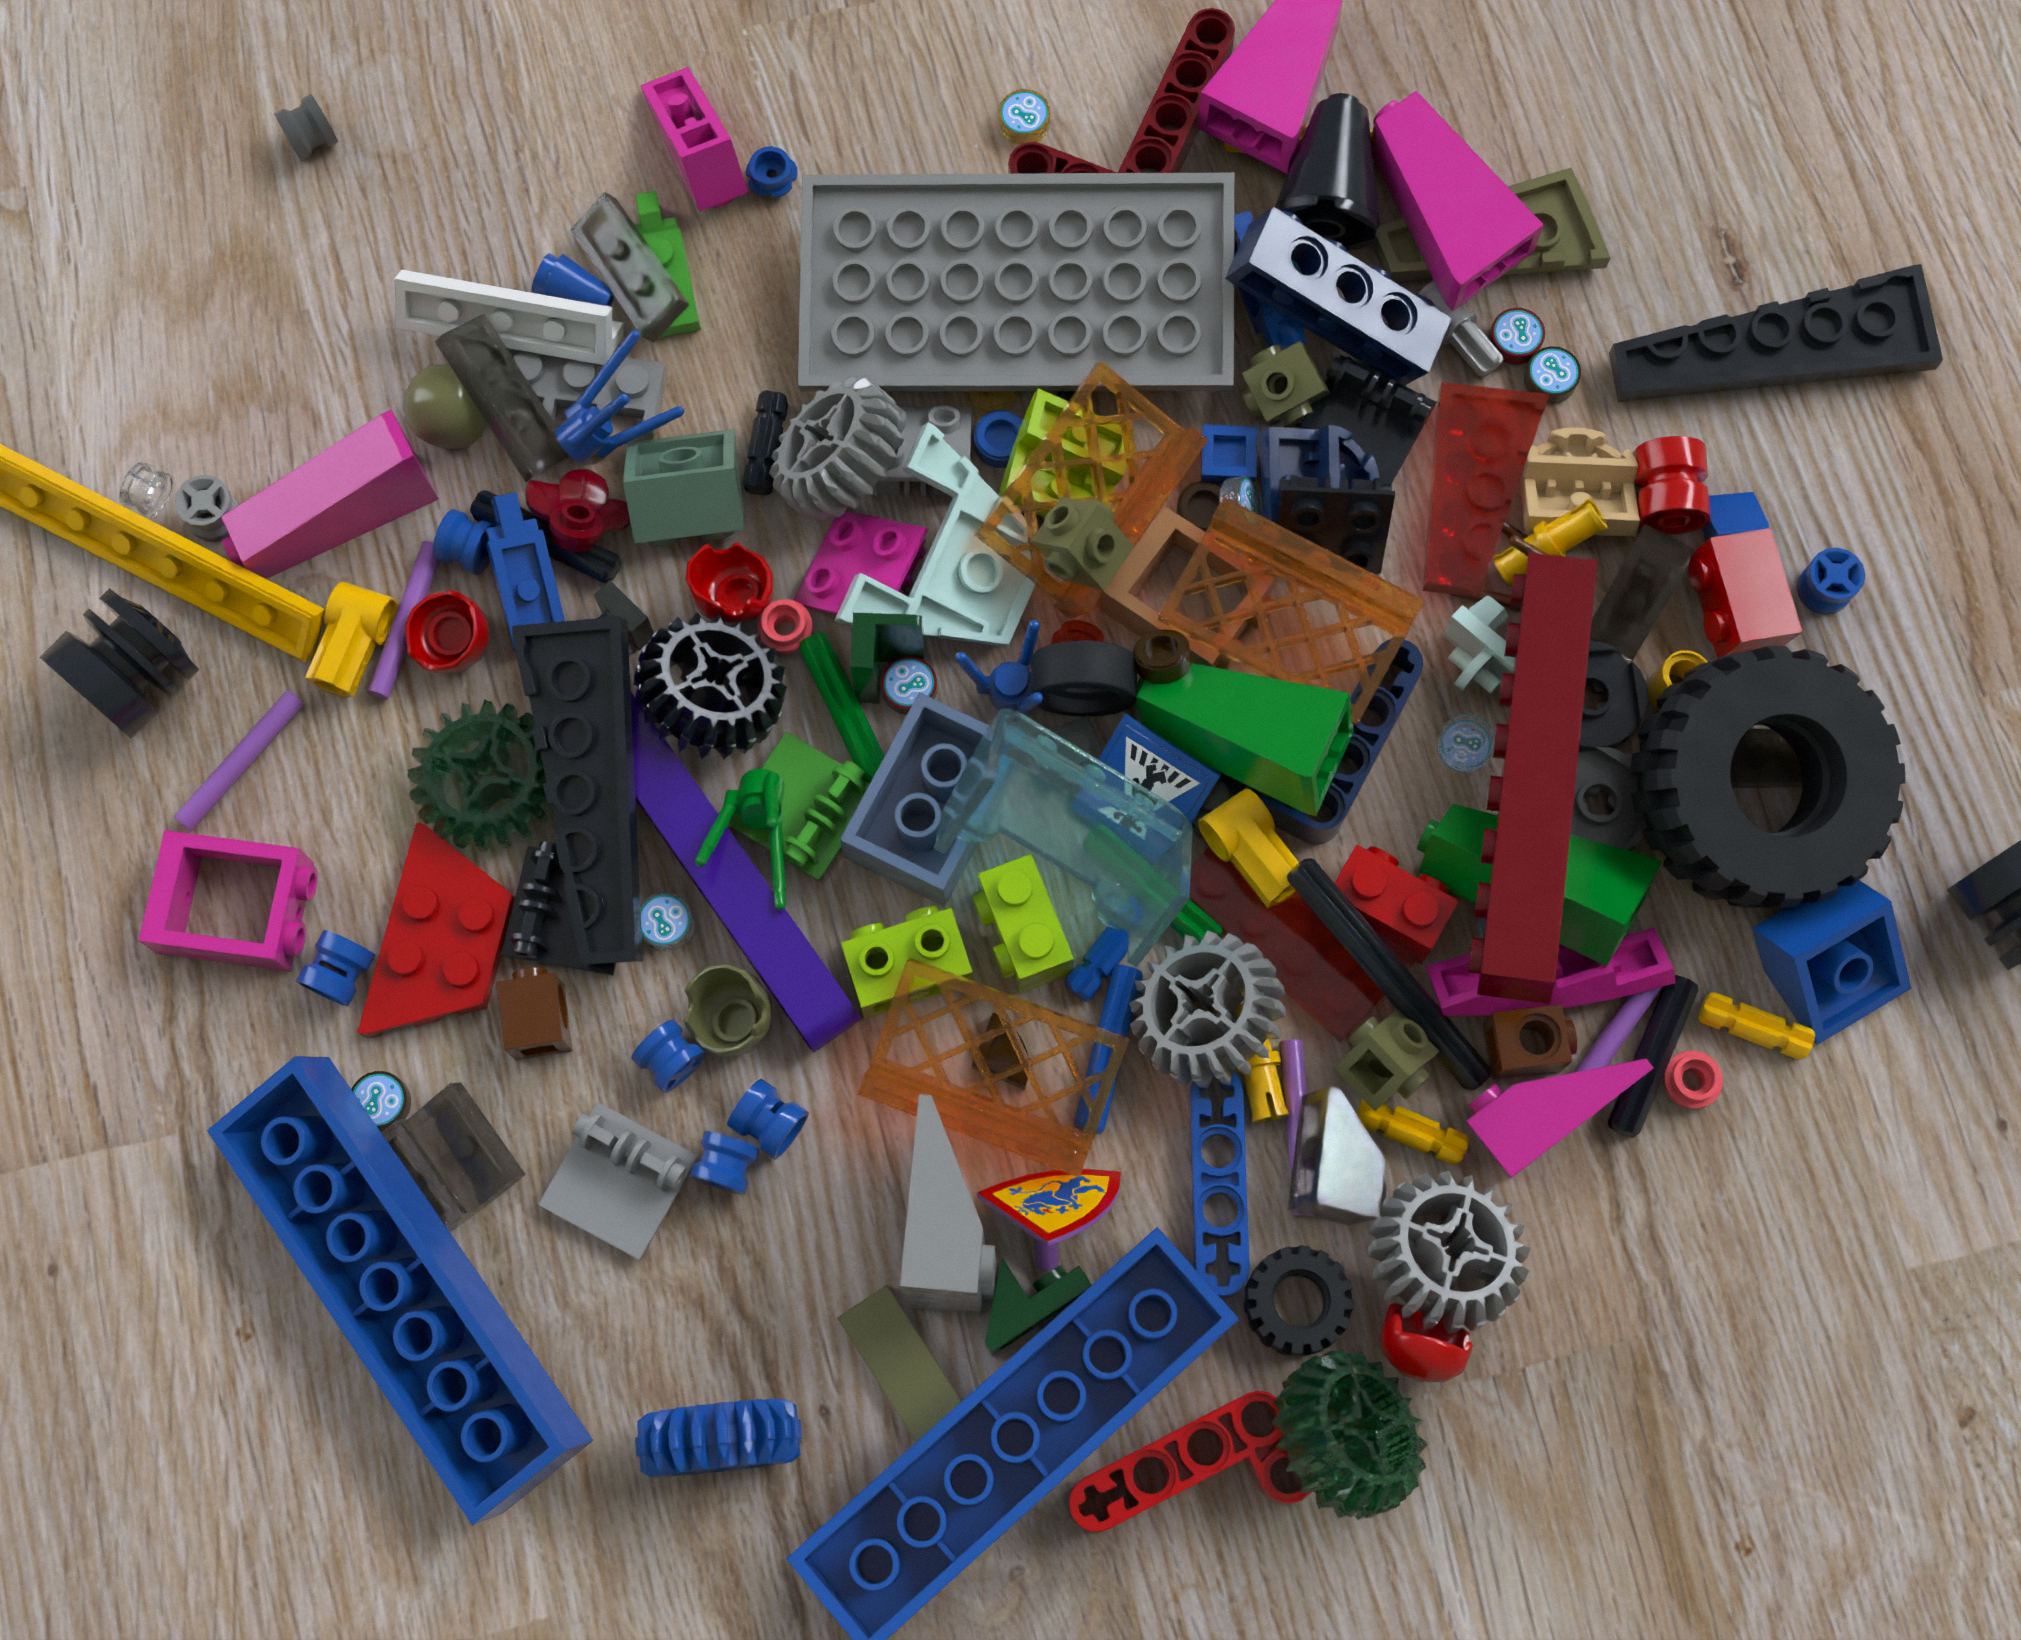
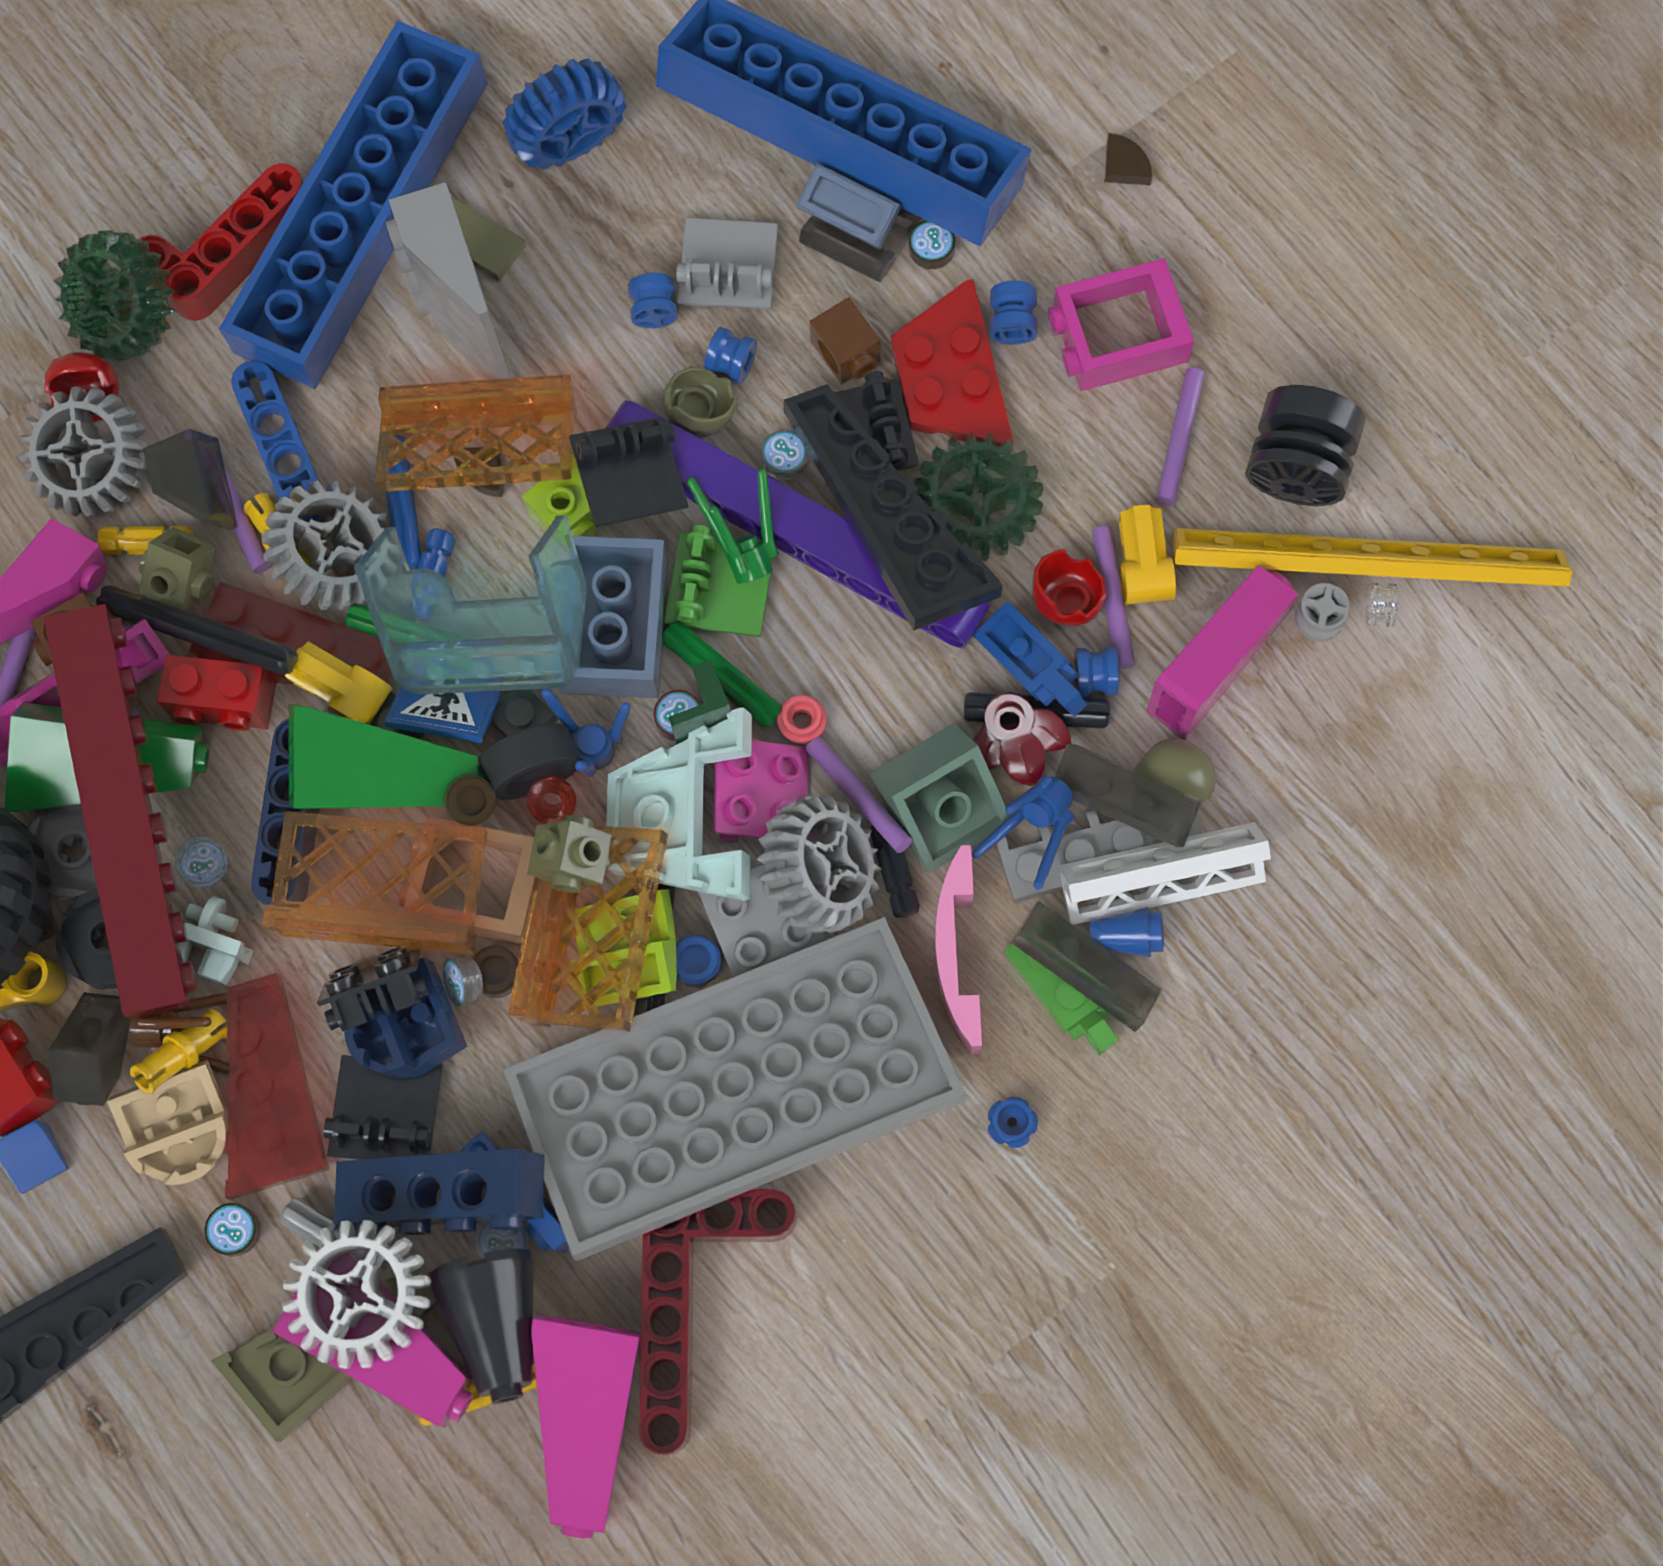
camera: 160 degrees right, 0 degrees up
(111, 1107) = (1126, 162): none -> dark brown tile
(306, 127) = (1445, 978): dark grey wheel -> none
(448, 1173) = (848, 206): none -> sand blue tile
(615, 604) = (934, 665): pearl dark grey plate -> none
(695, 139) = (1098, 1122): dark pink slope -> none
(707, 703) = (817, 648): black gear -> none
(718, 390) = (961, 1009): none -> bright pink slope
(729, 583) = (859, 725): red hair -> none
(764, 517) = (859, 795): none -> medium lavender bar
(767, 1118) = (634, 343): blue wheel -> none
(842, 936) = (629, 471): none -> black hinge
(1016, 1314) = (382, 293): dark green slope -> none
(1024, 116) = (809, 1283): tile -> none
(1024, 922) = (494, 552): lime brick -> none
(1054, 1206) = (390, 356): shield -> none
(1228, 452) = (489, 1025): blue plate -> none
(1303, 387) = (461, 1100): olive brick -> none
(1336, 1299) = (176, 361): black tyre -> none
(1447, 234) = (343, 1317): none -> white gear
(1517, 335) = (273, 1252): tile -> none
(1672, 484) = (88, 1147): red wheel -> none

